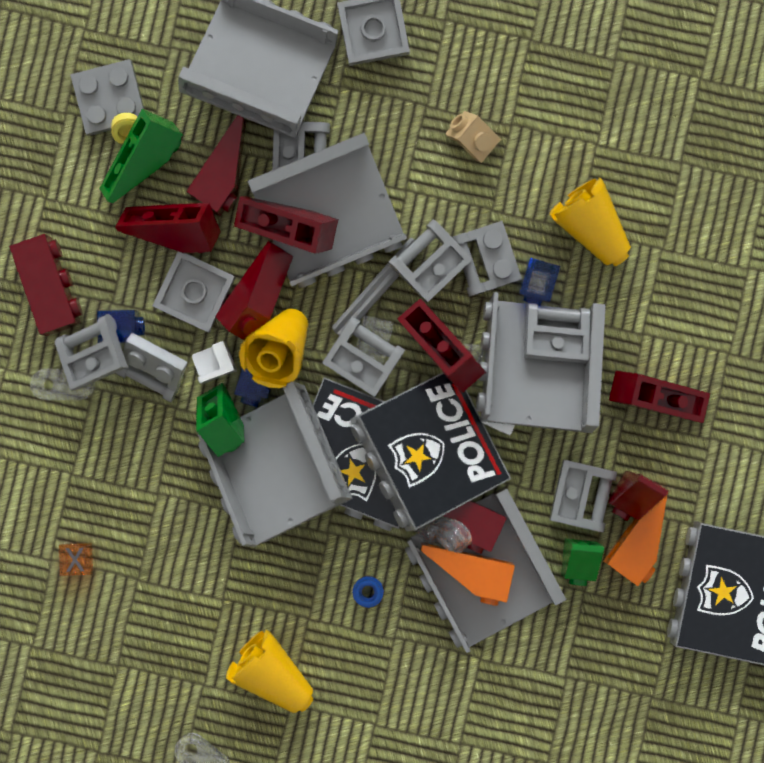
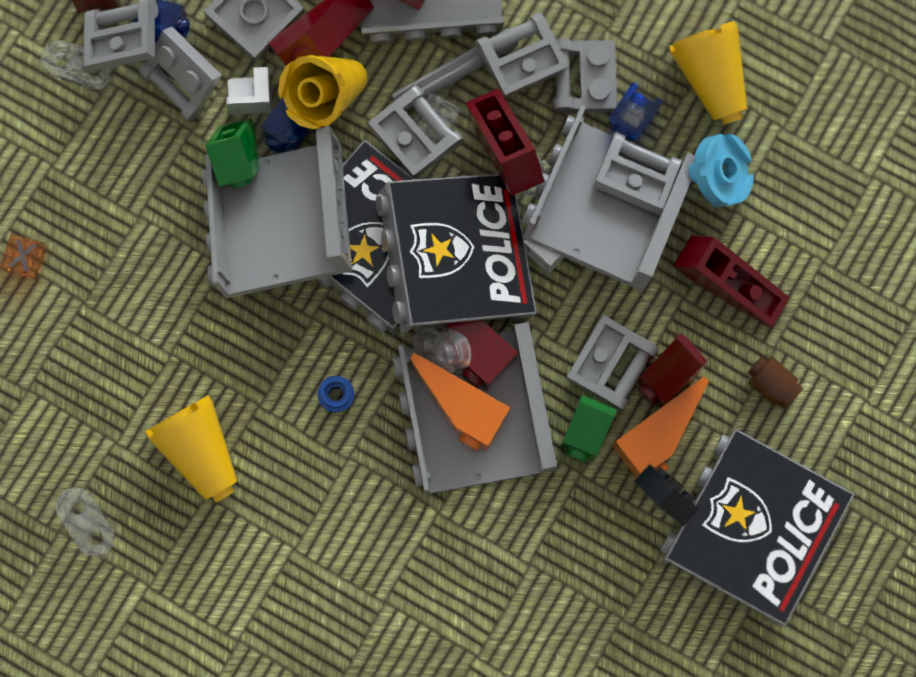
camera: 15 degrees right, 10 degrees down
(614, 314) = (718, 185): none -> medium azure plate
(662, 595) = (667, 494): none -> black piece
(719, 470) = (774, 382): none -> reddish brown brick

